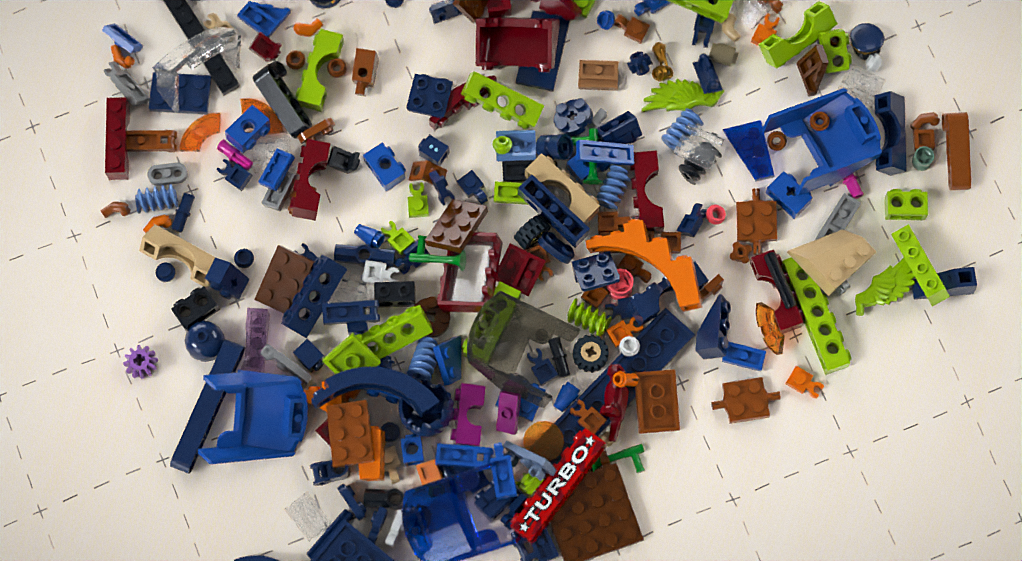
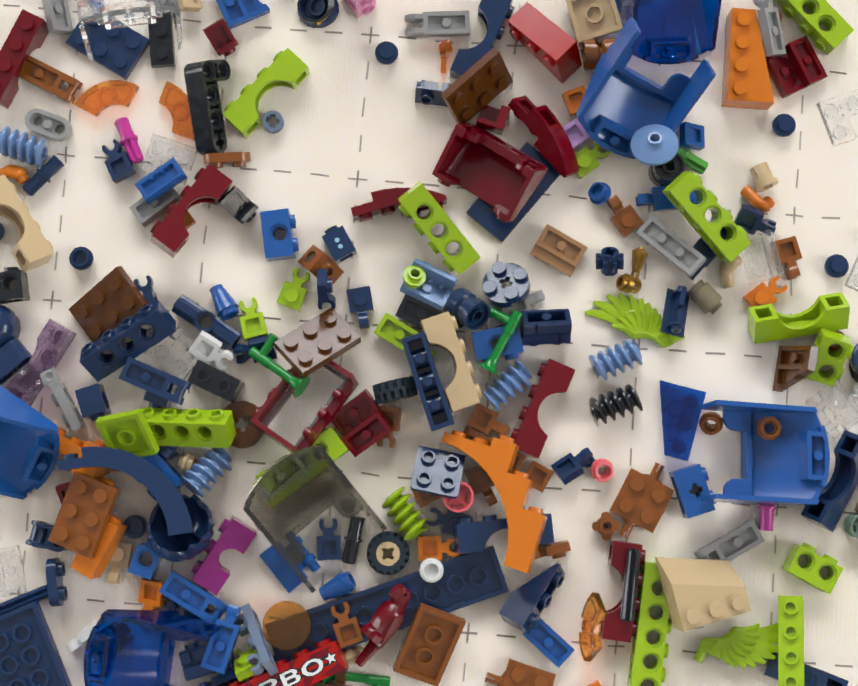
camera: 25 degrees right, 10 degrees up
(226, 279) = (45, 275): dark blue brick -> none
(252, 119) = (141, 116): blue brick -> none
(291, 56) = (244, 61): dark orange plate -> none
(306, 29) = (277, 41): orange arm -> none
(333, 94) = (267, 116): none -> sand blue bush
(336, 62) = (283, 92): dark orange plate -> none
(365, 62) = (311, 109): dark orange torso -> none
(378, 520) = (72, 615): dark blue plate -> none
(381, 498) = (89, 594): black piece -> none
(403, 364) = (186, 462): none -> tan plate
(429, 95) = (365, 182): dark blue bracket -> none
(449, 359) = (235, 482): blue wing -> none
(508, 412) = (266, 574): magenta plate -> none
(556, 247) = (412, 419): dark blue plate -> none
(605, 152) = (516, 346): plate -> none
(623, 379) = (401, 609): orange pin -> none
(678, 30) = (671, 246): none -> light grey plate
(698, 152) = (617, 396): clear plate -> none

